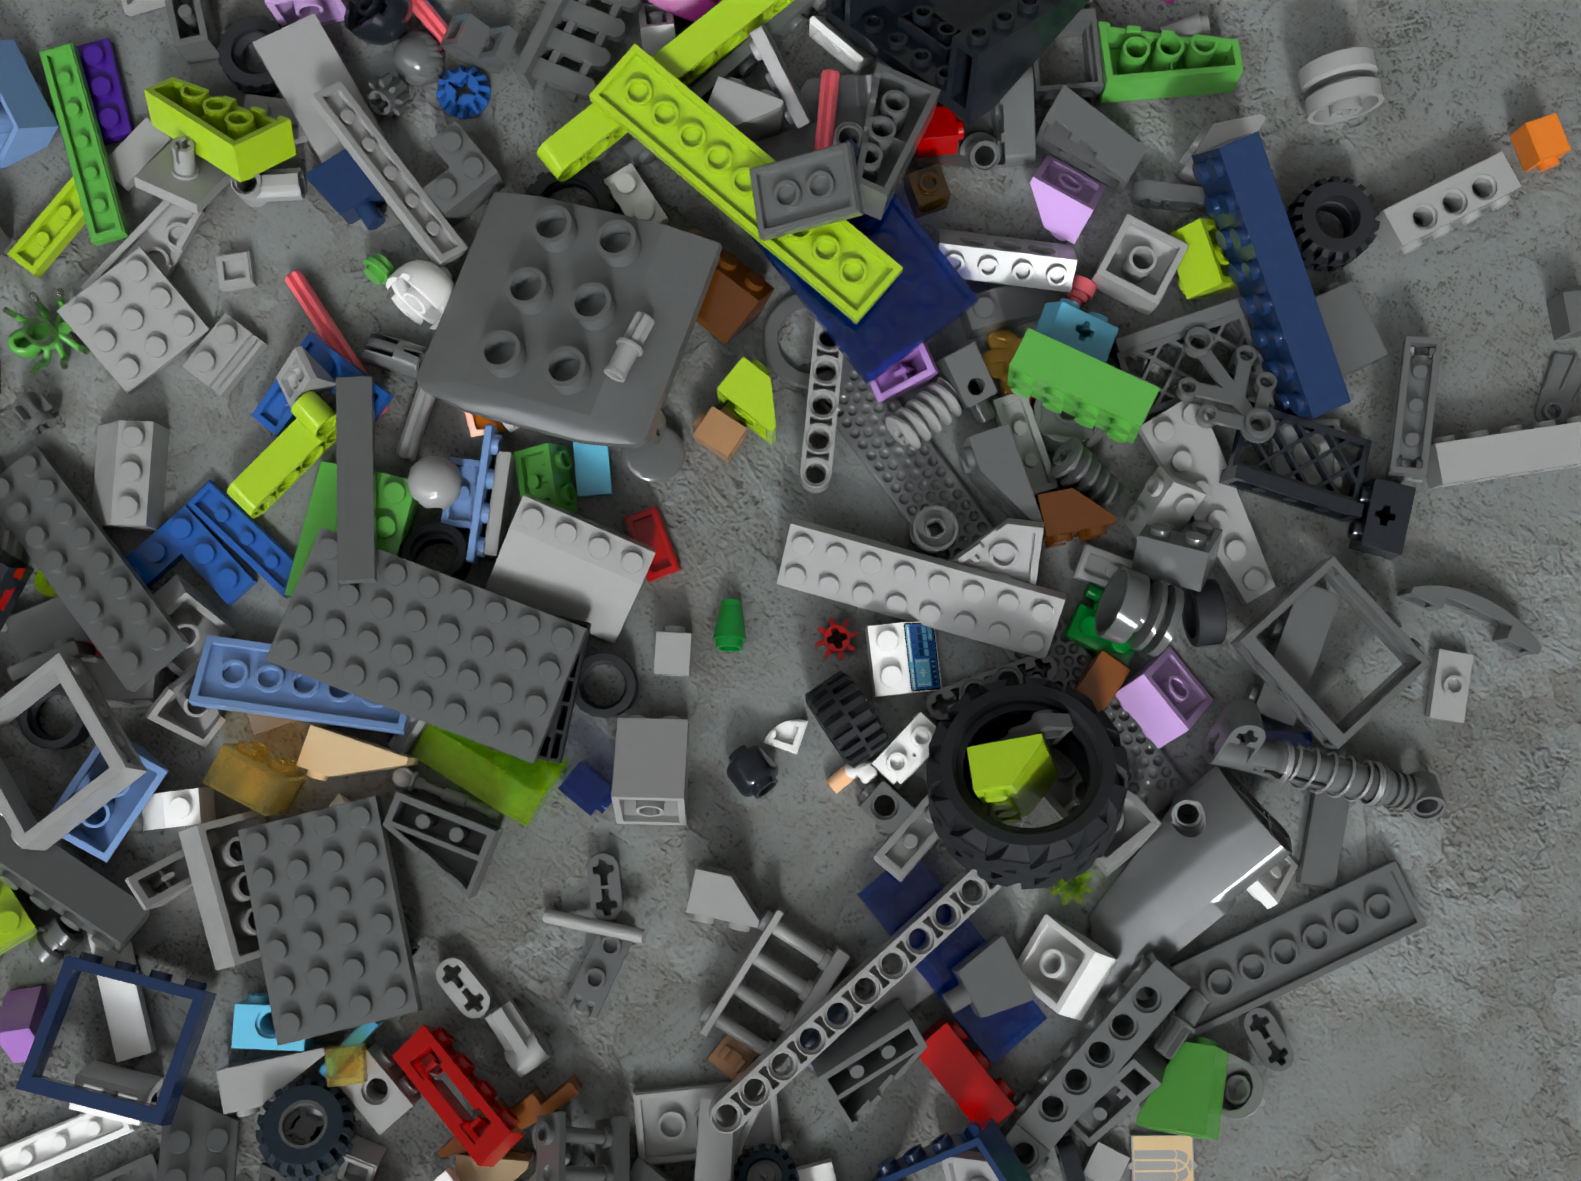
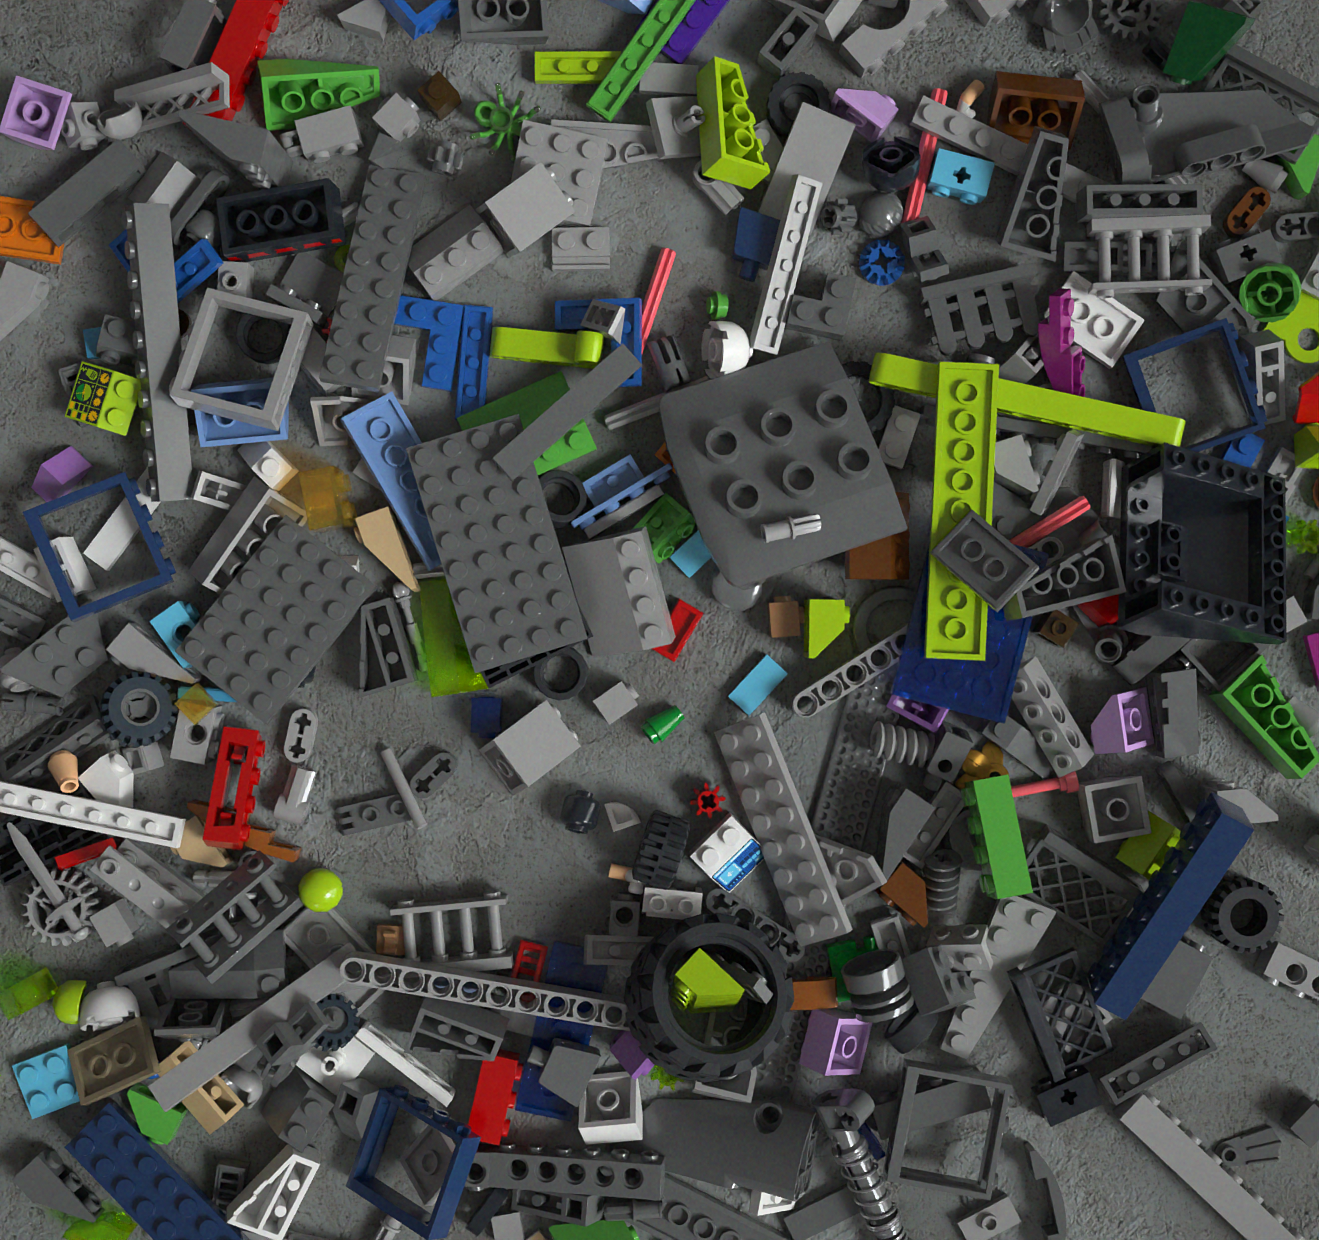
camera: 55 degrees right, 5 degrees up
(52, 943) = (126, 452): dark grey wheel -> none
(139, 372) = (526, 209): none -> light grey slope
(236, 271) = (642, 209): light grey tile -> none
(434, 482) = (605, 461): light grey hair -> none
(628, 1088) = (320, 890): none -> lime hair
(720, 895) = (484, 855): light grey slope -> none
(764, 508) = (757, 684): none -> medium azure tile
(851, 919) = (536, 948): none -> red slope
(864, 1137) = (406, 1063): none -> white tile
(933, 530) = (827, 810): dark grey wheel -> none
(1024, 904) = (628, 1053): none -> medium lavender slope
(1077, 328) = (1039, 815): medium azure brick -> none
(1229, 390) = (1073, 934): dark grey plant -> none

